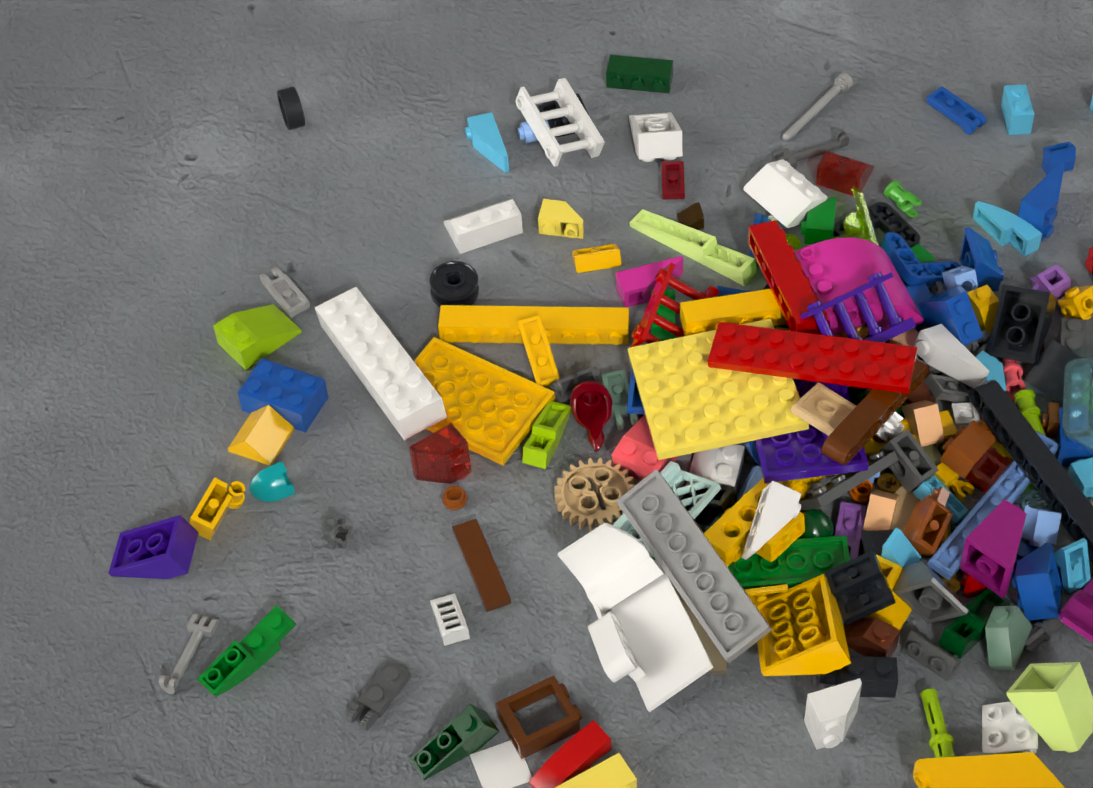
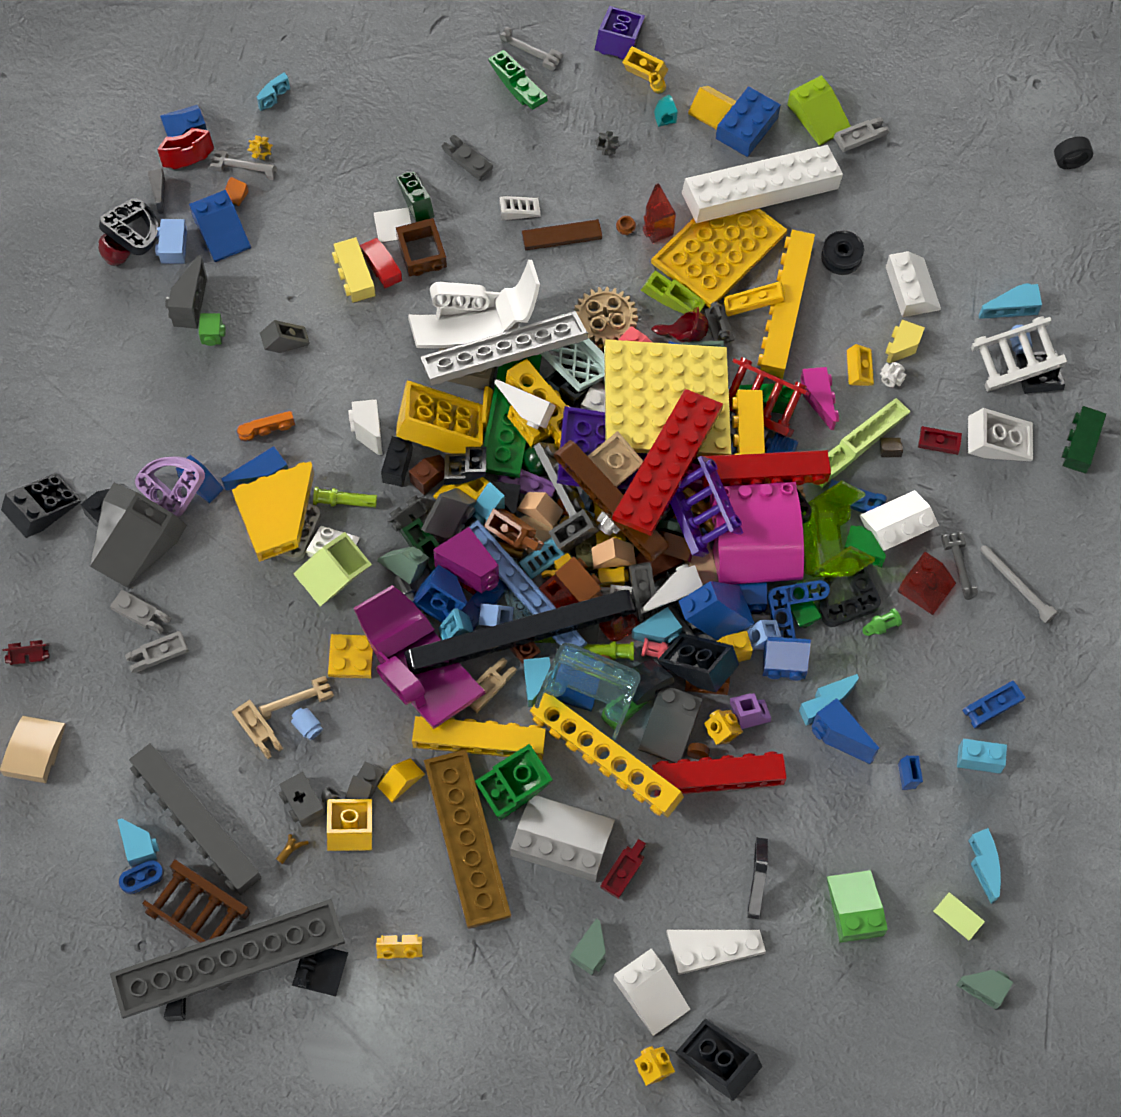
camera: 95 degrees right, 15 degrees up
(605, 223) = (893, 374): none -> white gear

